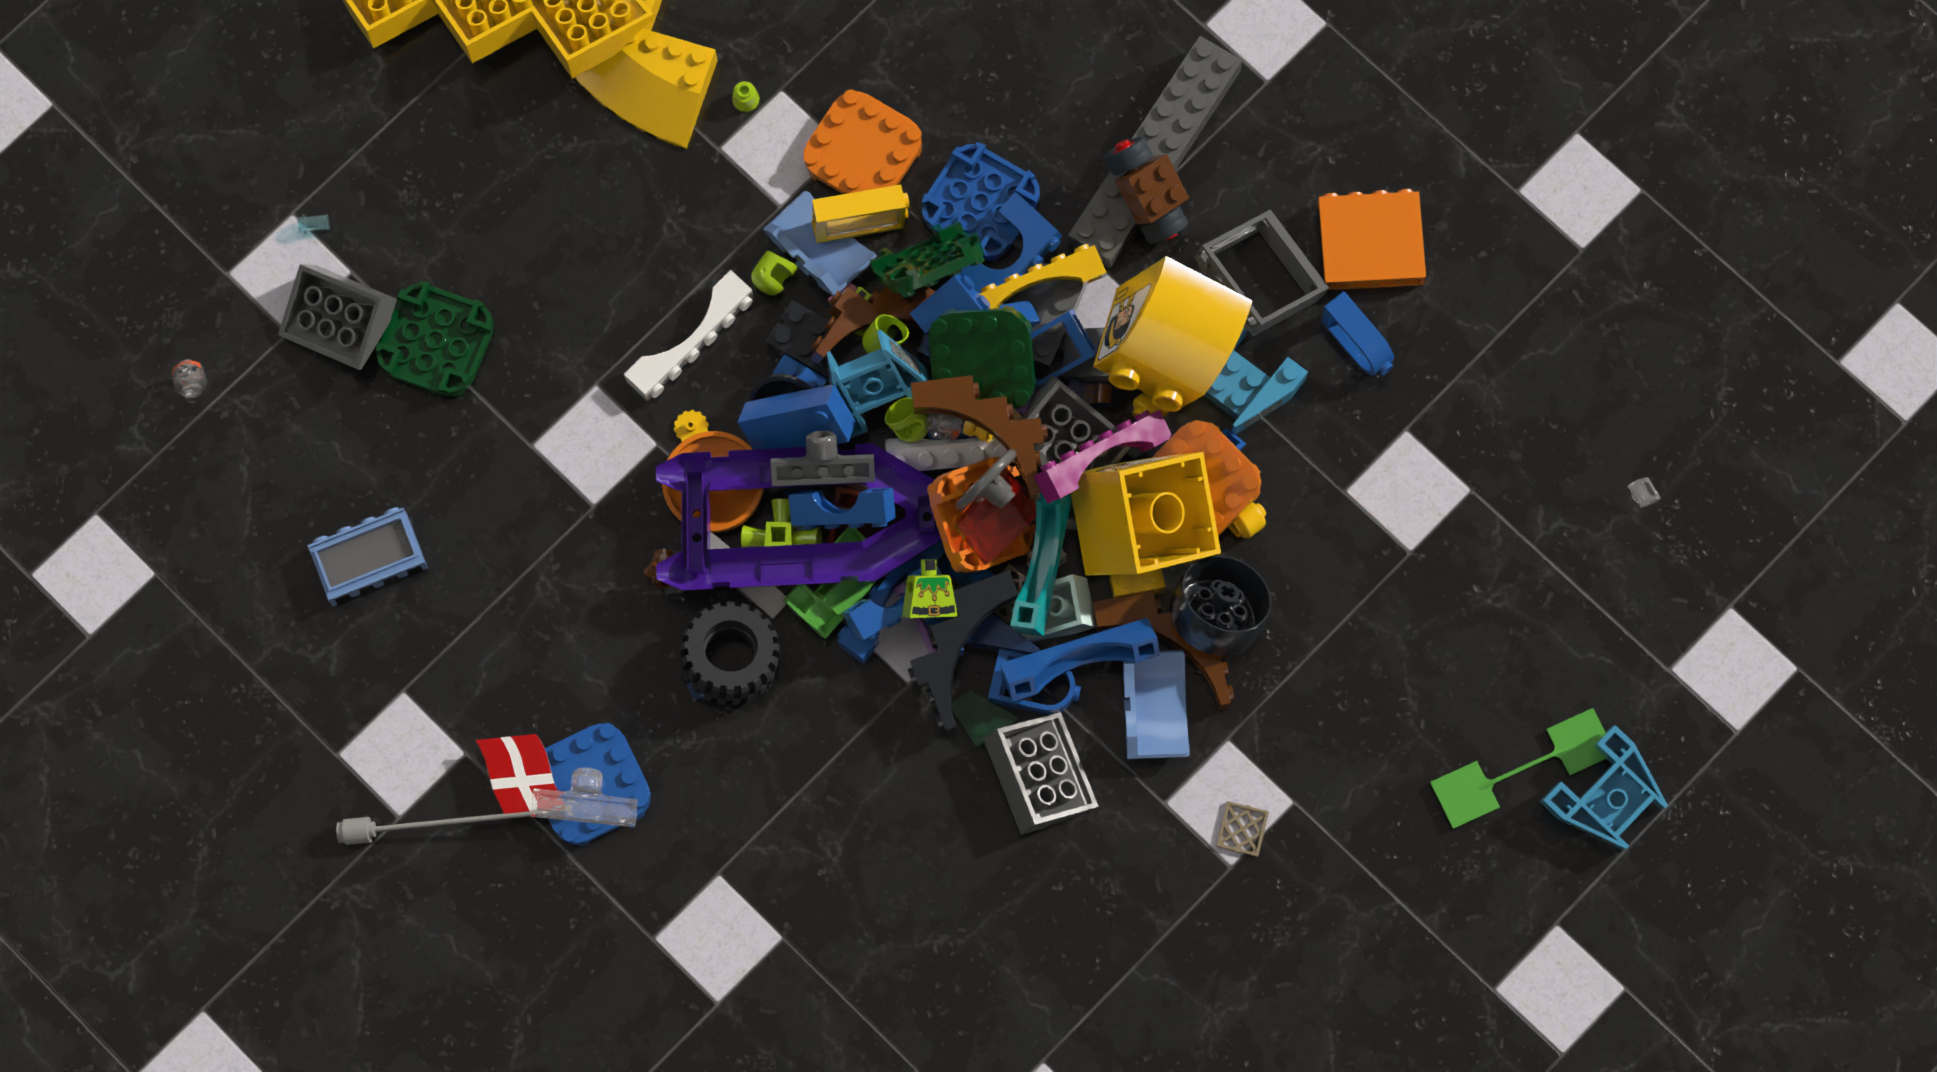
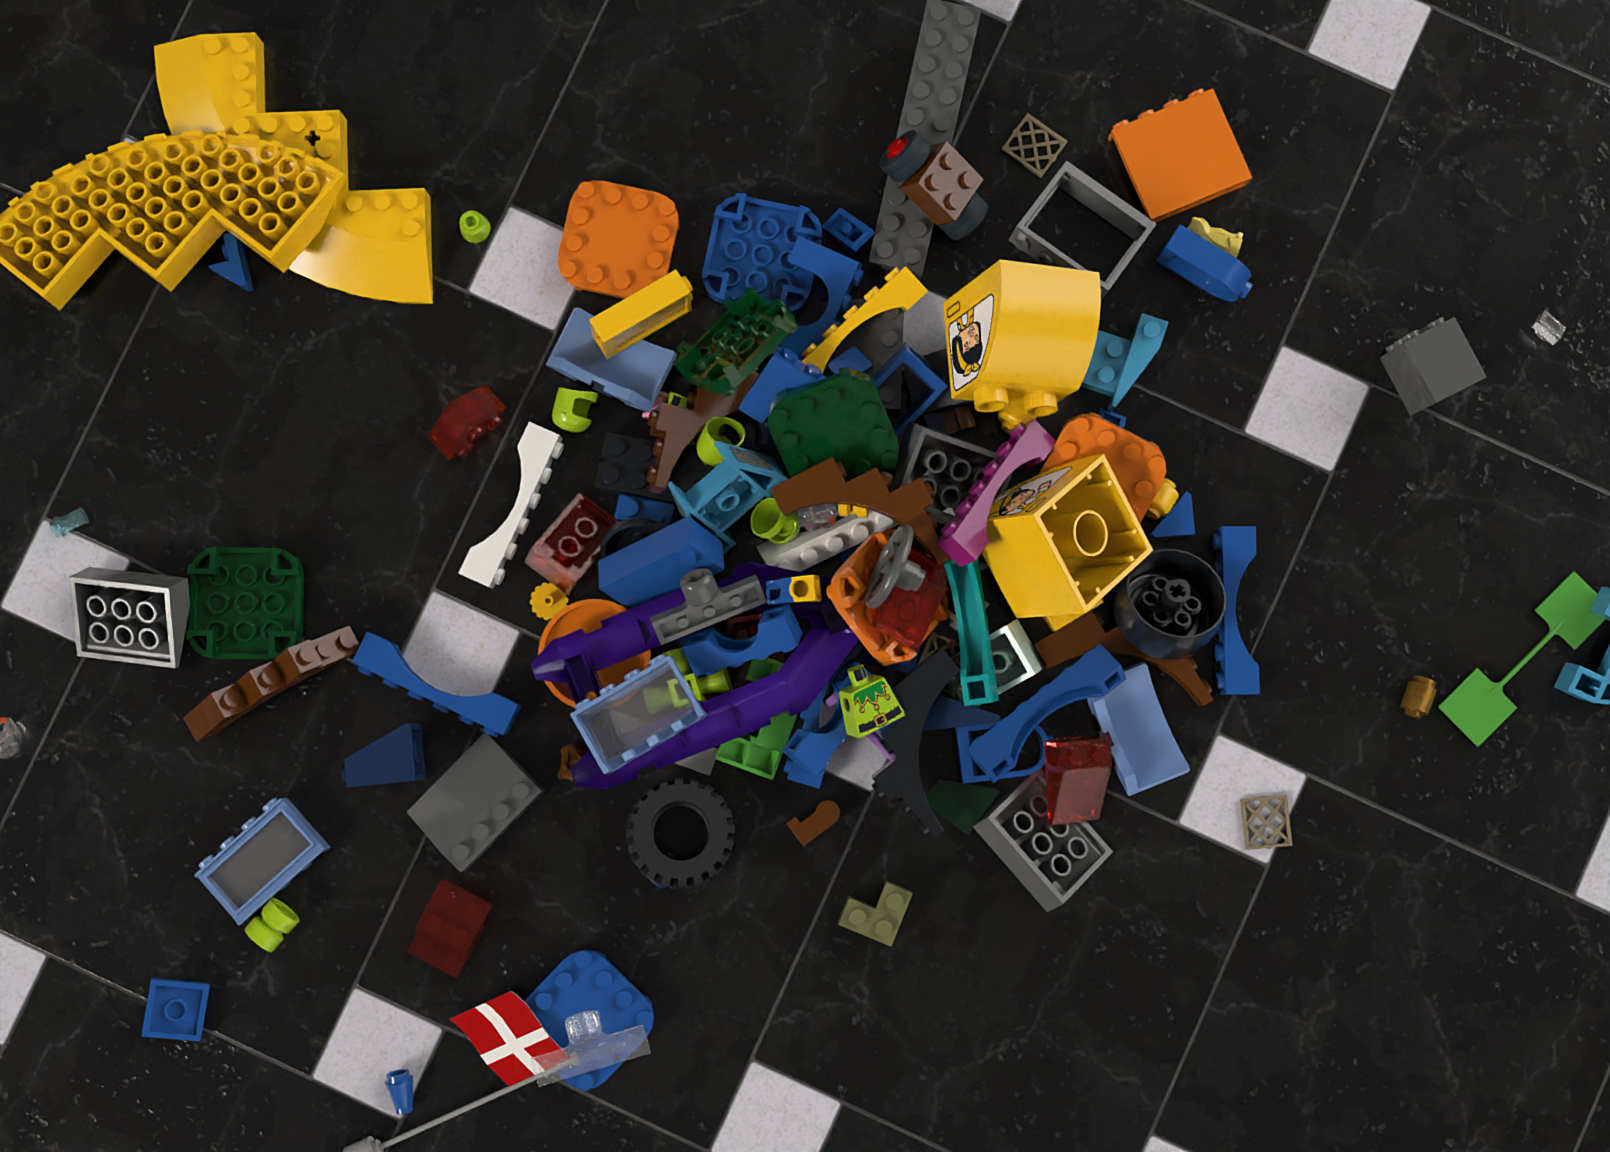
camera: 25 degrees left, 10 degrees up
(248, 653) = (175, 1009): none -> blue hinge
(355, 611) = (275, 920): none -> lime wheel
(409, 789) = (400, 1088): none -> blue cone
(430, 404) = (268, 680): none -> reddish brown arch
(504, 665) = (449, 927): none -> clear red bracket
(505, 507) = (388, 759): none -> dark blue slope
(532, 62) = (236, 268): none -> blue slope
(565, 572) = (475, 802): none -> dark grey slope
(604, 496) = (385, 659): none -> blue arch
(676, 251) = (466, 421): none -> clear red brick
(725, 384) = (570, 544): none -> clear red slope
(731, 534) = (637, 713): none -> clear window
(849, 690) = (823, 817): none -> reddish brown leg
(873, 790) = (877, 921): none -> olive brick
(901, 478) = (793, 590): none -> leg
(1061, 206) = (847, 231): none -> blue slope
(1087, 728) = (1076, 777): none -> clear red slope
(1236, 200) = (1044, 129): none -> dark tan window
(1255, 544) = (1177, 522): none -> blue slope
(1297, 590) = (1237, 668): none -> blue arch
(1378, 317) = (1217, 236): none -> light yellow animal
(1415, 766) = (1418, 696): none -> pearl gold brick
(1522, 484) = (1431, 364): none -> dark grey container

